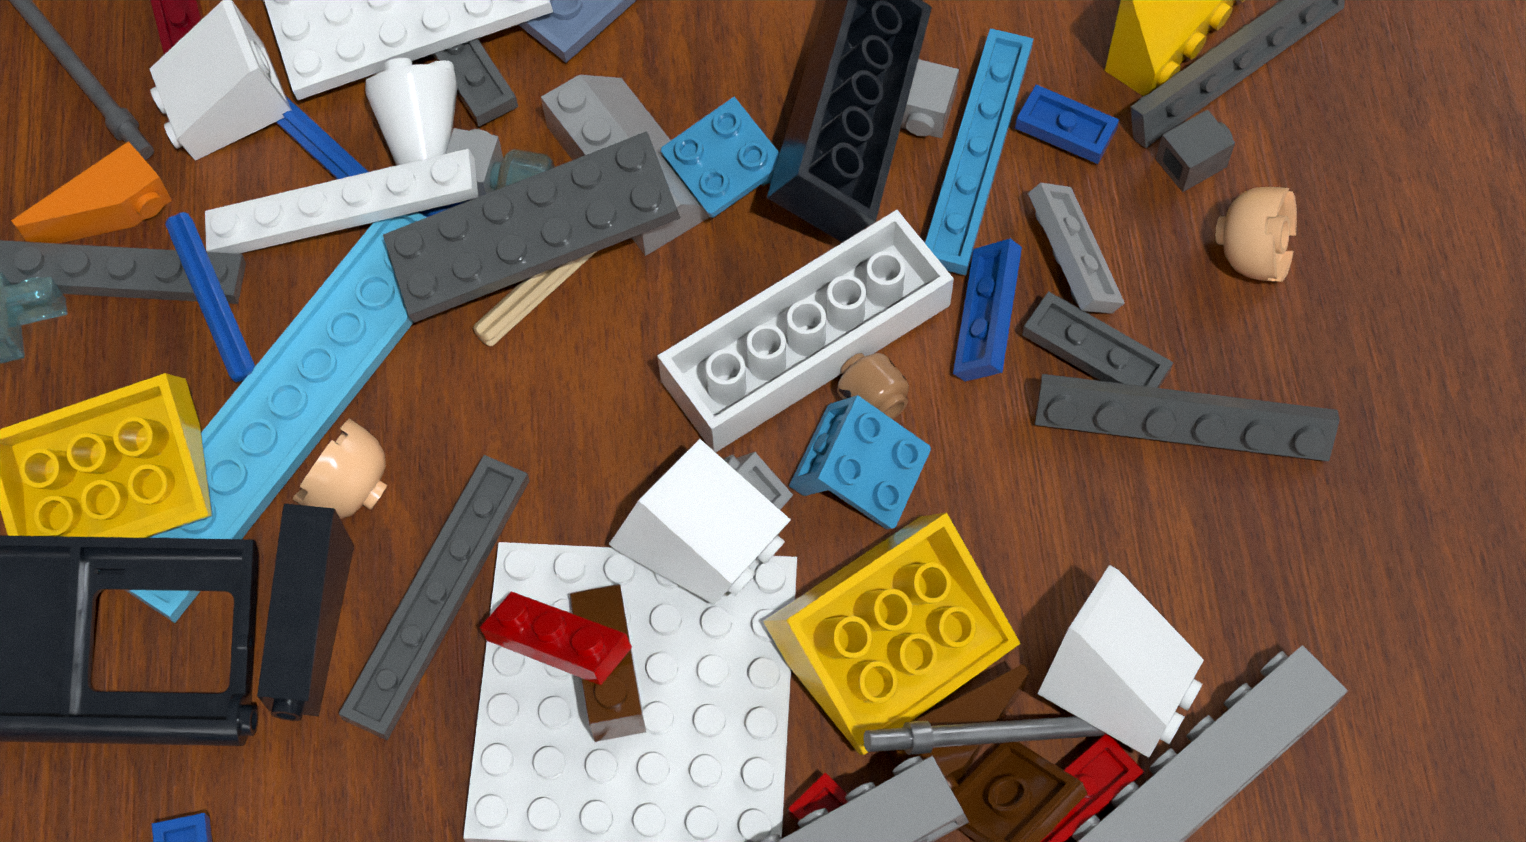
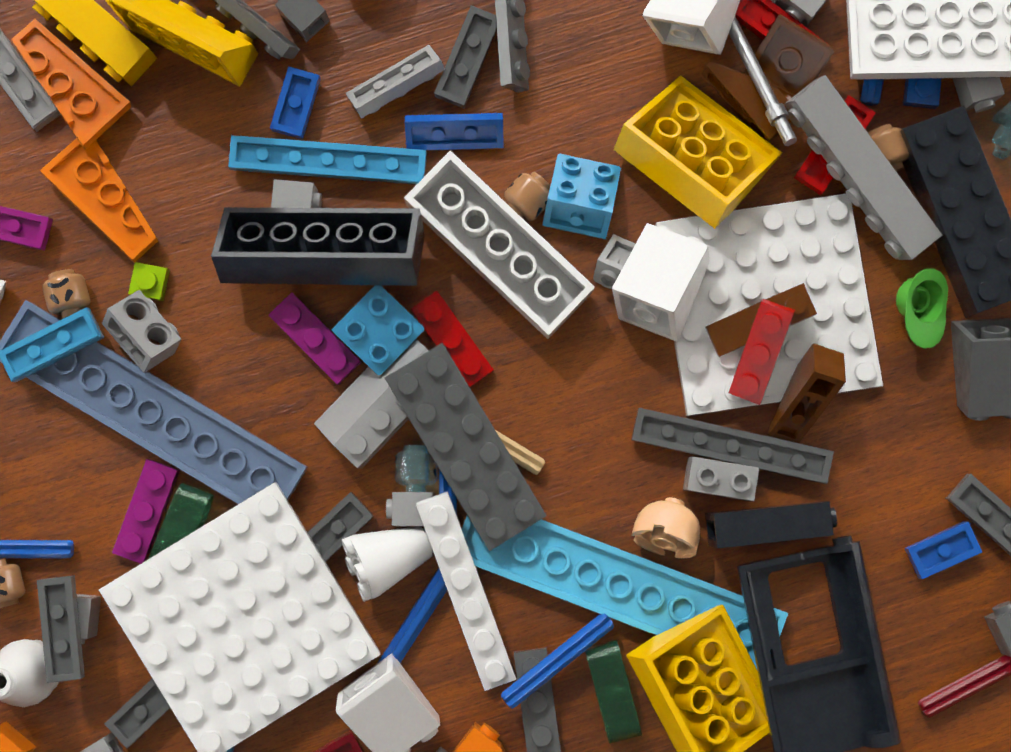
camera: 100 degrees left, 20 degrees up
(123, 360) = (613, 692): none -> clear green beam
(389, 560) = (721, 478): none -> light grey brick
(480, 703) = (809, 393): none -> reddish brown slope
(691, 260) = (445, 328): none -> red plate
(753, 85) = (315, 339): none -> magenta plate

